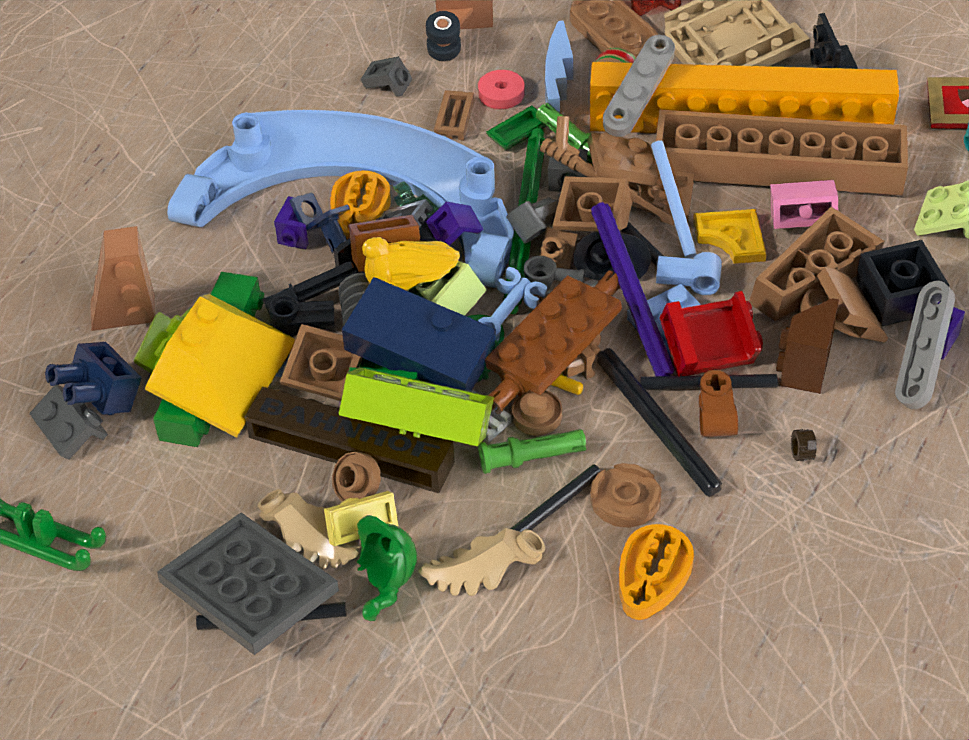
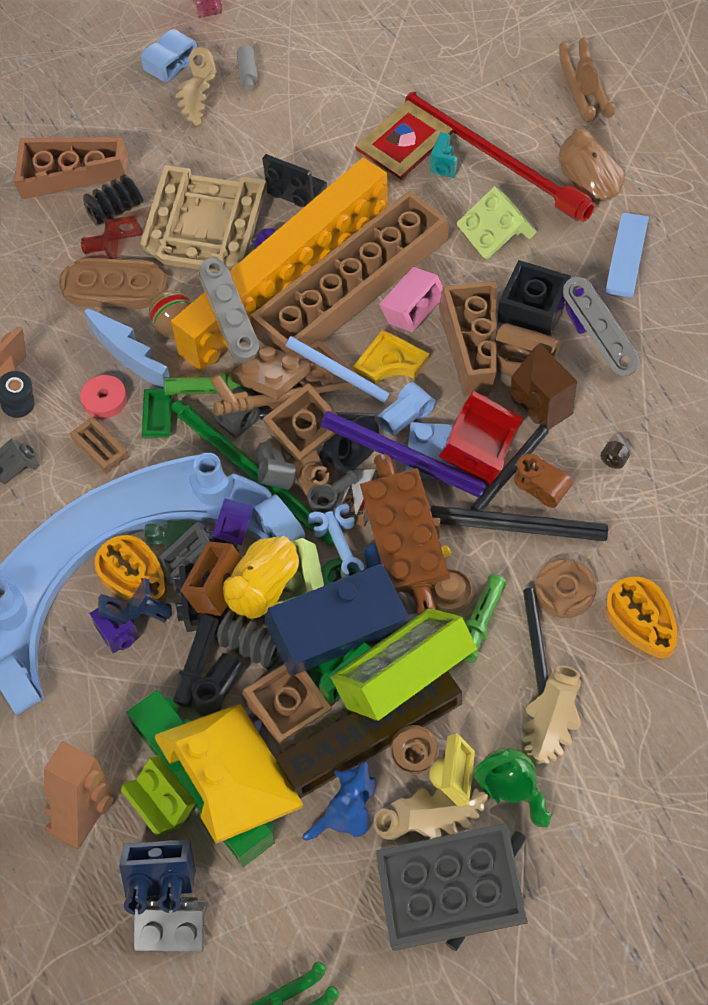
camera: 50 degrees left, 10 degrees up
(262, 467) = (347, 809): none -> blue animal

